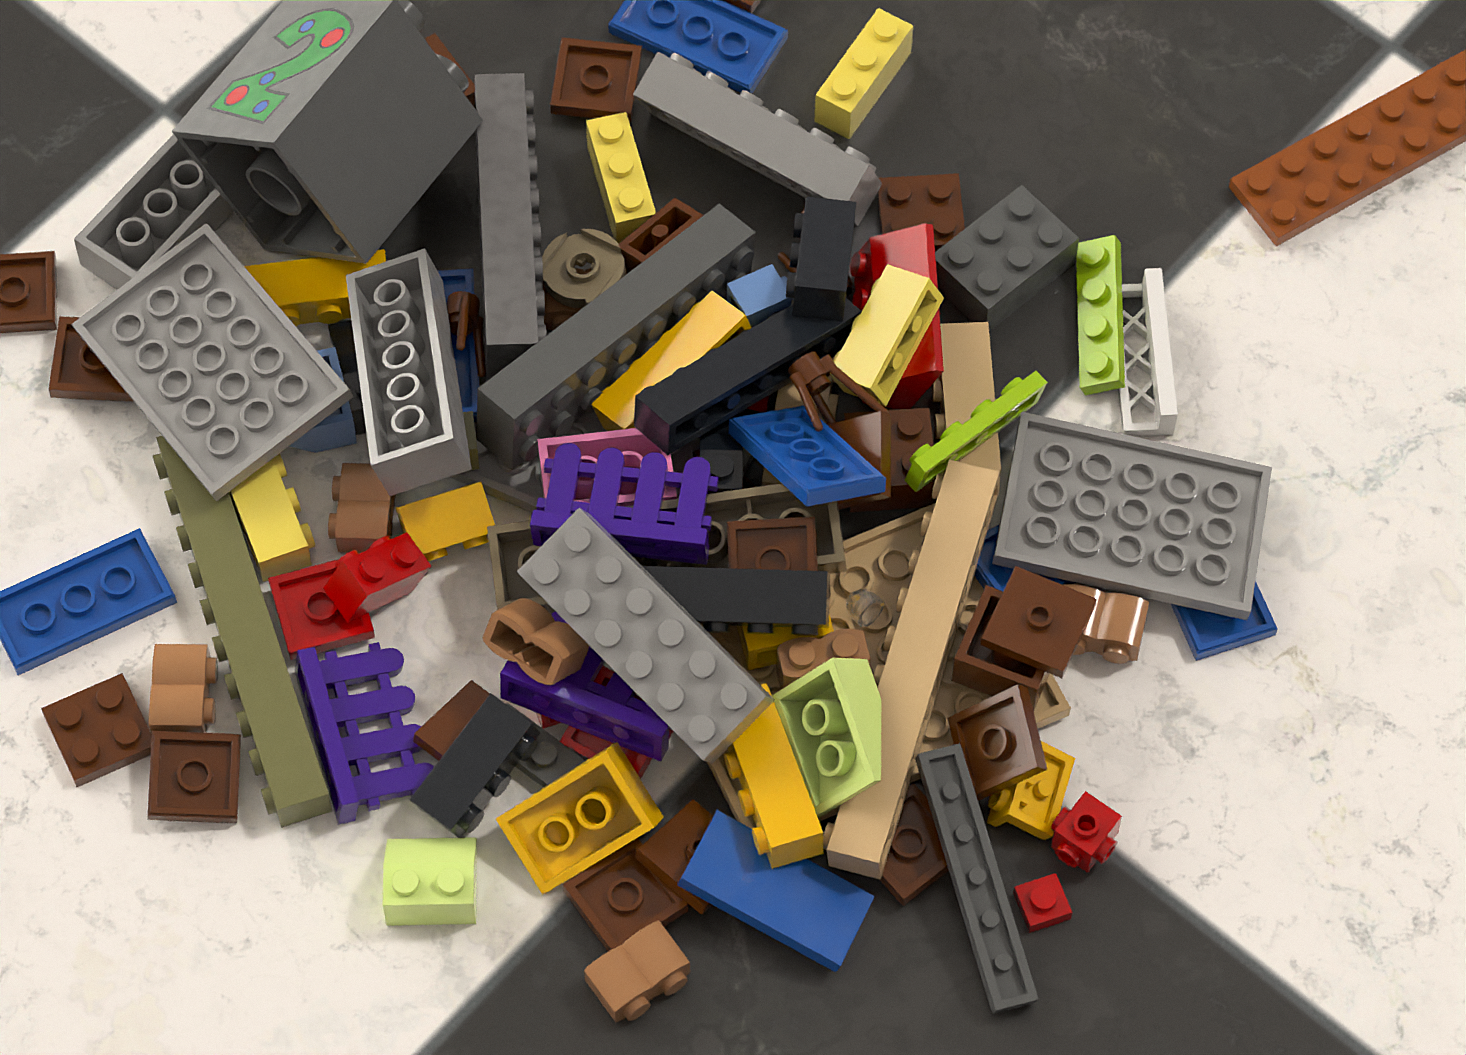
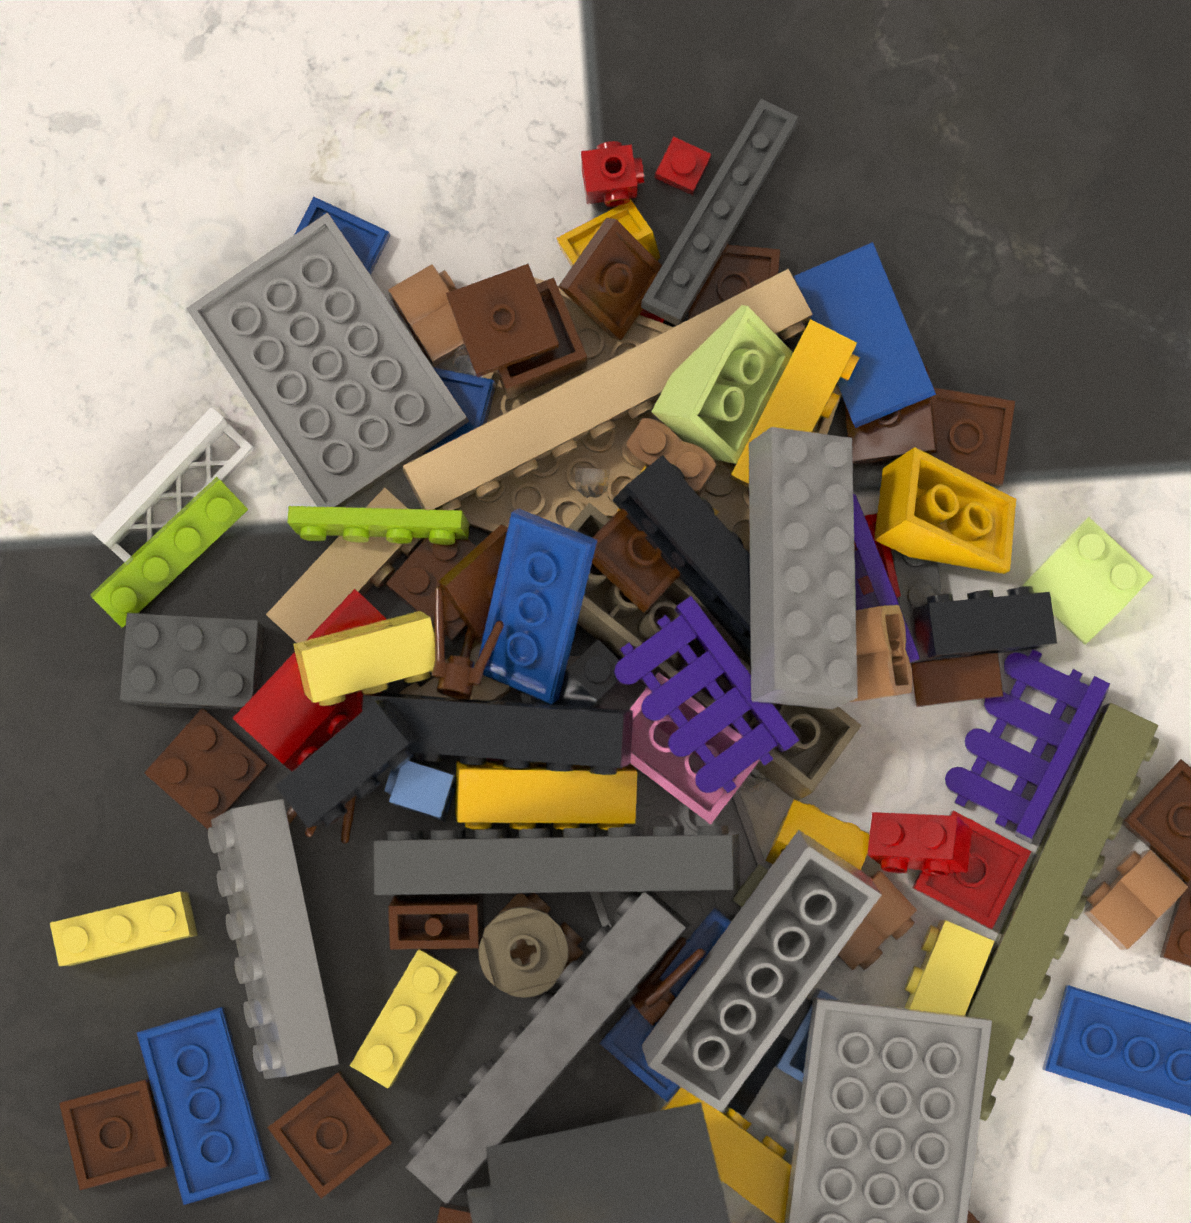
camera: 135 degrees left, 20 degrees up
(637, 972) = (1011, 372): medium nougat brick -> none

